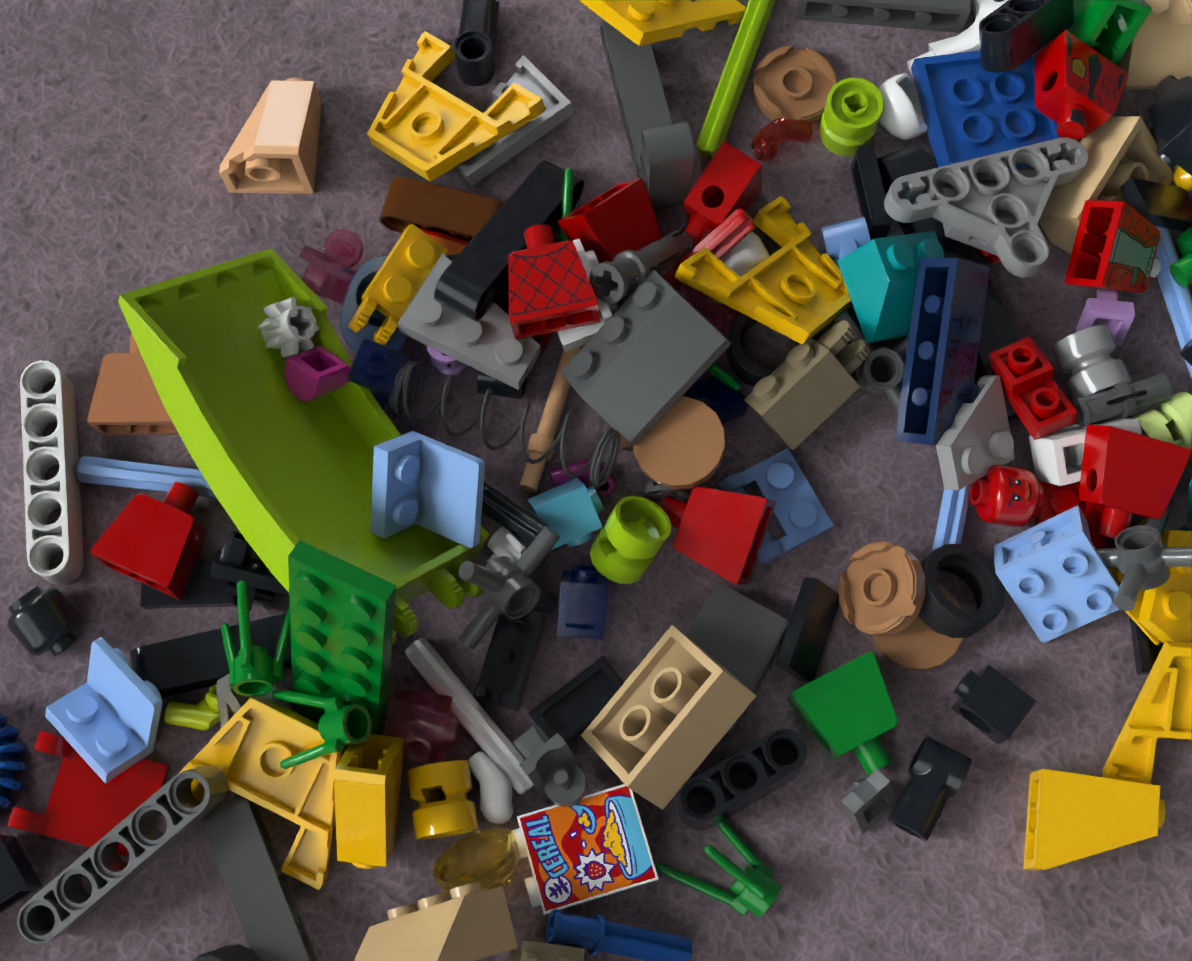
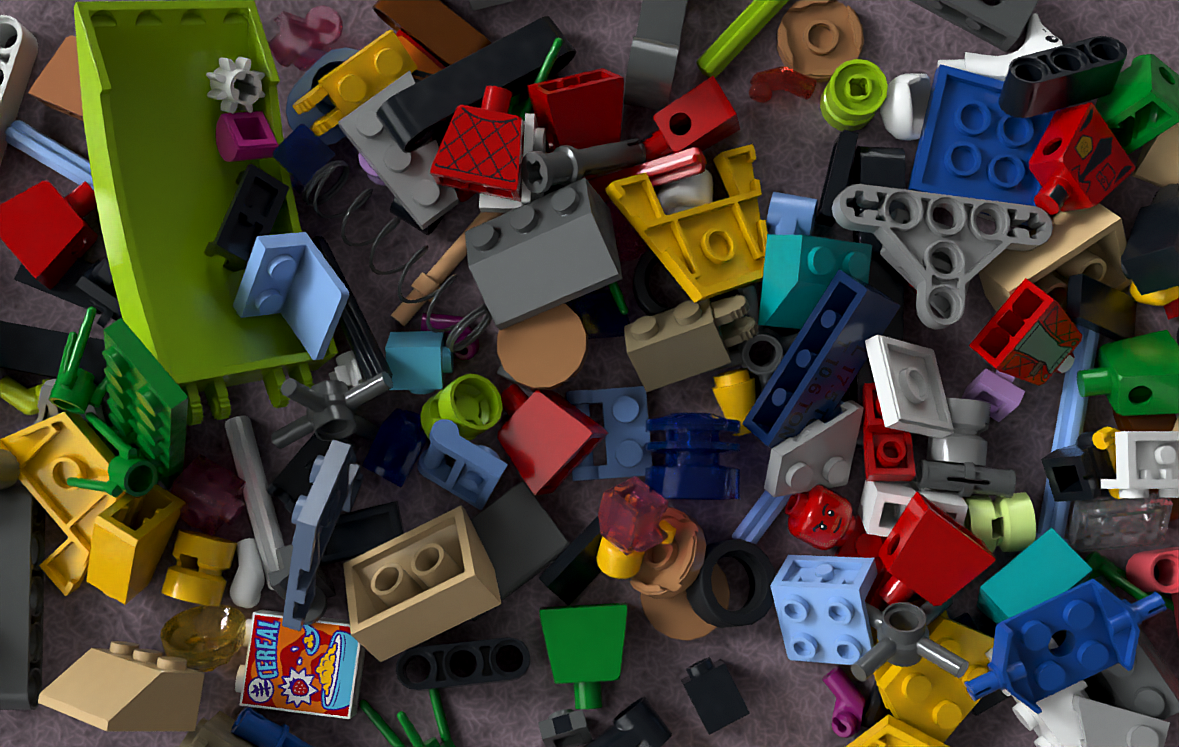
camera: 20 degrees right, 10 degrees up
(353, 443) = (248, 216): none -> black hinge
(550, 700) = (334, 490): none -> sand blue wing
(669, 591) = (475, 468): none -> medium blue plate
(840, 572) = (630, 526): none -> clear pink piece
(863, 482) = (693, 457): none -> clear blue wheel
(877, 424) = (735, 395): none -> yellow cone
(1032, 336) = (909, 387): none -> white tile
(1118, 657) = (848, 705): none -> magenta arm

